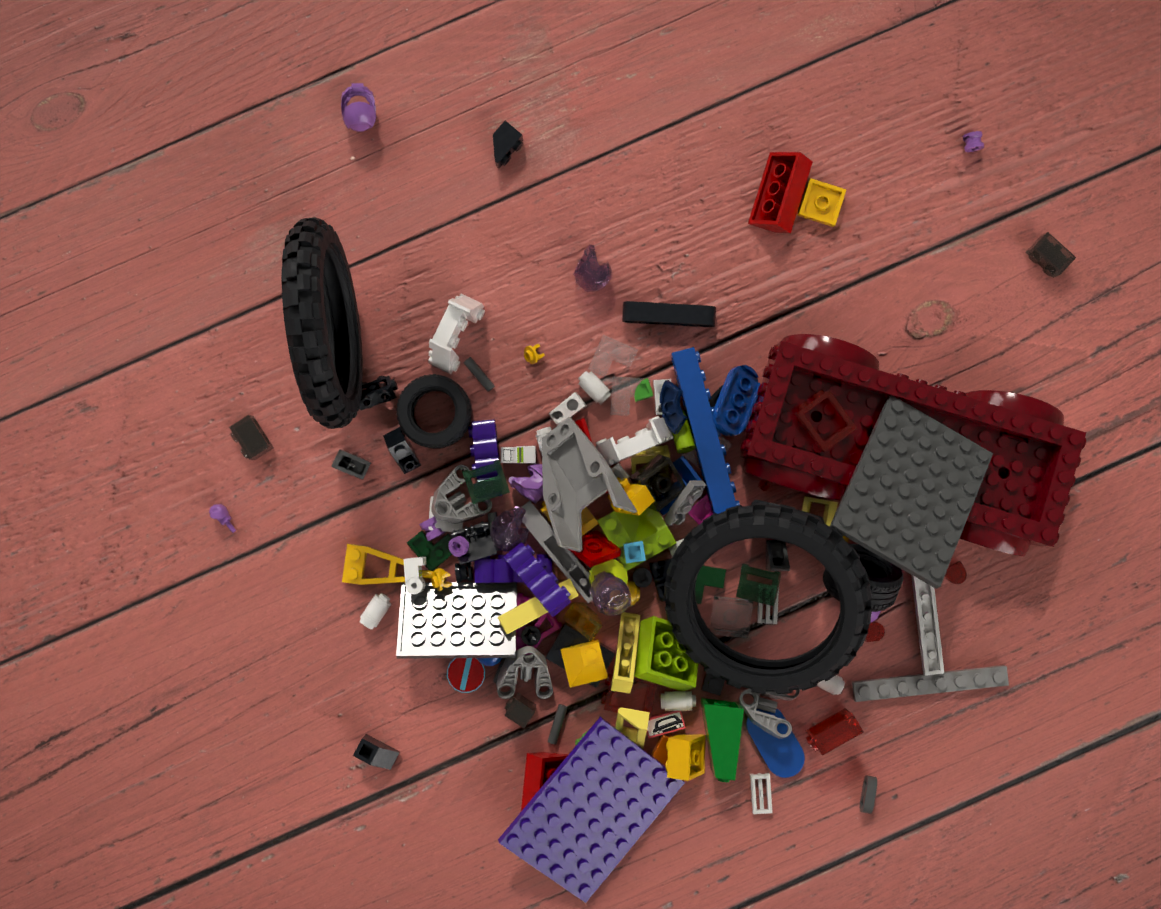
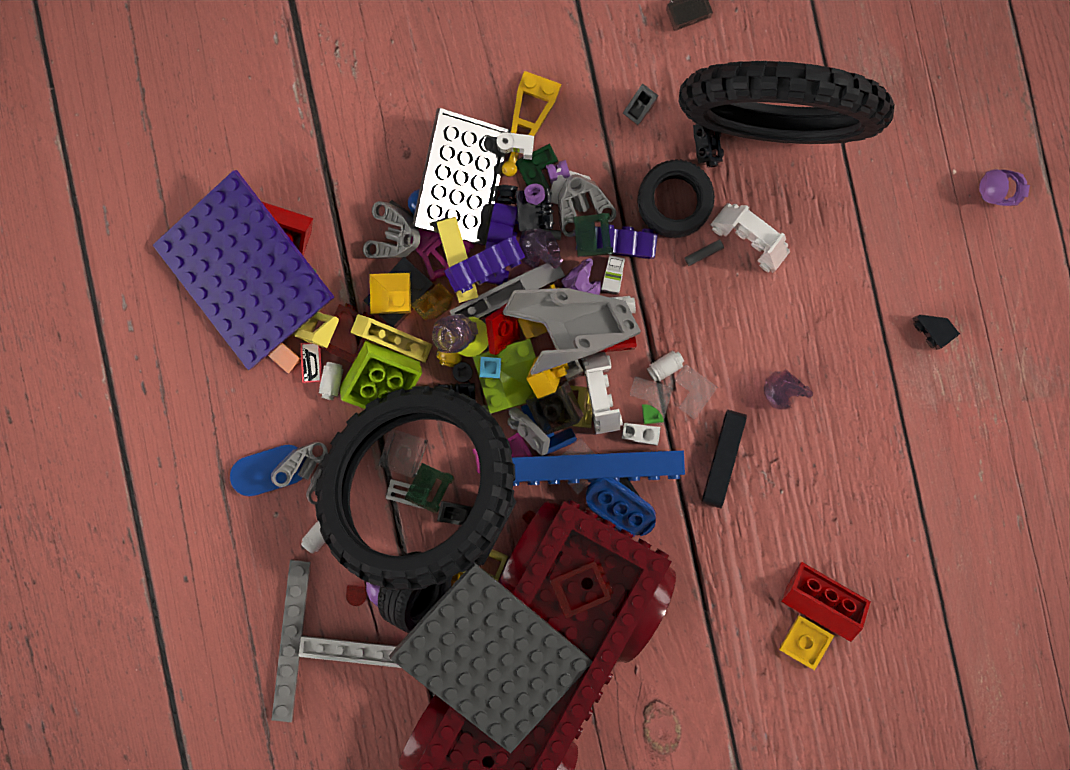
camera: 100 degrees right, 0 degrees up
(375, 611) = (488, 98): white head -> none
(376, 752) = (347, 69): slope -> none
(401, 450) = (643, 158): black slope -> none
(438, 580) = (504, 166): yellow plate -> none
(465, 674) = (405, 174): red piece -> none
(520, 709) = (358, 220): clear smoke brick -> none
(531, 355) = (711, 309): yellow plate -> none
(531, 635) = (429, 247): black tile -> none
(557, 724) = (334, 255): dark grey piece -> none
(567, 408) = (650, 335): white leg -> none
(671, 407) = (631, 438): dark blue tile -> none
(684, 439) = (601, 444): lime brick -> none
(685, 756) = (274, 376): yellow slope -> none
(709, 577) = (448, 438): dark green tile -> none
(712, 684) = (338, 420): black plate -> none
(723, 735) = (289, 417): green slope -> none
(759, 776) = (237, 445): white tile -> none
(833, 732) = (265, 528): clear red window -> none
(868, 794) = (195, 551): dark grey beam -> none
(956, 573) = (396, 692): clear red tile -> none

